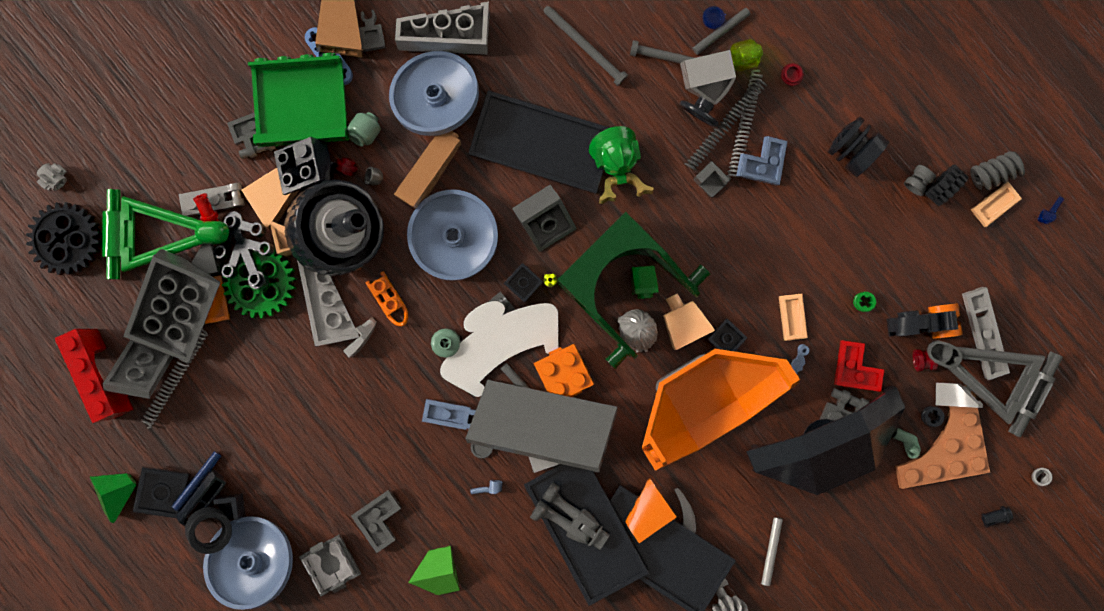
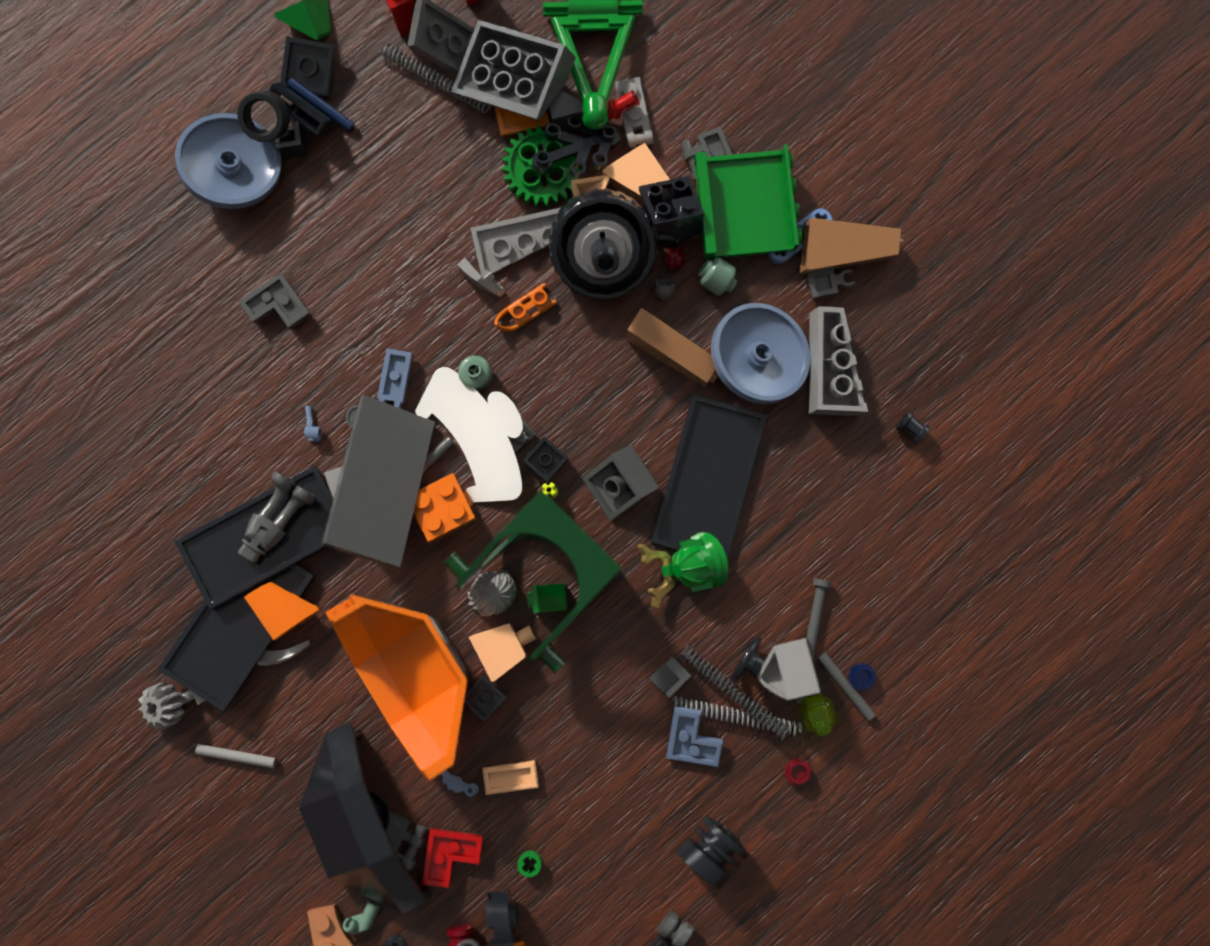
camera: 90 degrees right, 5 degrees down
(330, 565) = (225, 251): piece -> none
(437, 572) = (216, 369): bright green slope -> none
(452, 235) = (598, 377): sand blue dish -> none
(586, 46) = (788, 565): dark grey bar -> none

